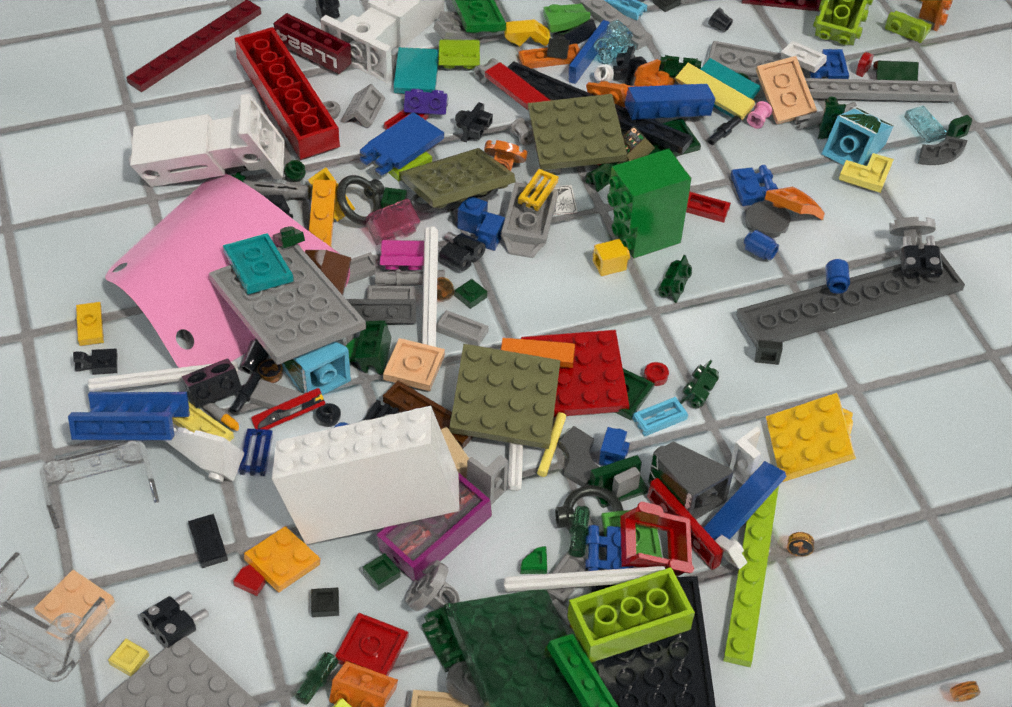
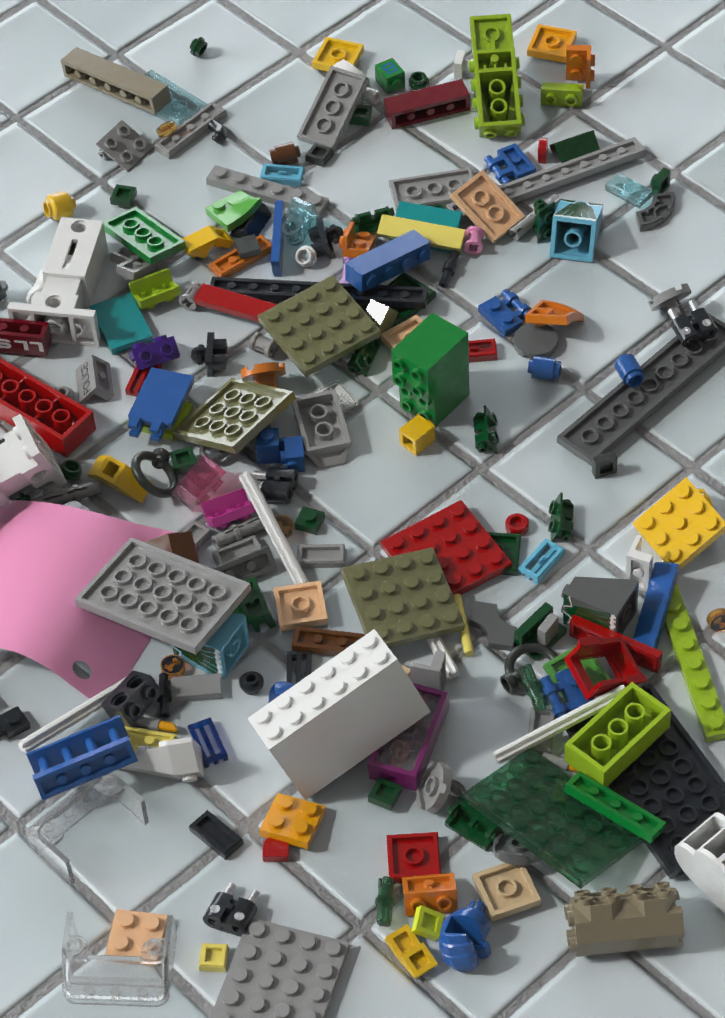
camera: 20 degrees left, 0 degrees up
(254, 356) = (151, 656): black cone -> none
(258, 263) = (114, 571): teal tile -> none
(288, 236) = (125, 536): dark green plate -> none
(288, 410) = (214, 693): red sticker -> none
(323, 210) = (128, 496): light orange plate -> none
(325, 602) = (351, 840): pearl dark grey tile -> none
(523, 198) = (317, 411): yellow tile -> none
(535, 562) = (508, 730): green tile -> none
(553, 350) = (407, 544): orange tile -> none
(614, 446) = (519, 604): blue brick -> none
(618, 91) = (319, 271): orange bracket -> none
(720, 20) = (384, 156): black piece -> none
(732, 551) = (669, 649): white plate -> none
(807, 57) = (492, 165): white plate -> none
(870, 176) = (606, 262): light yellow plate -> none

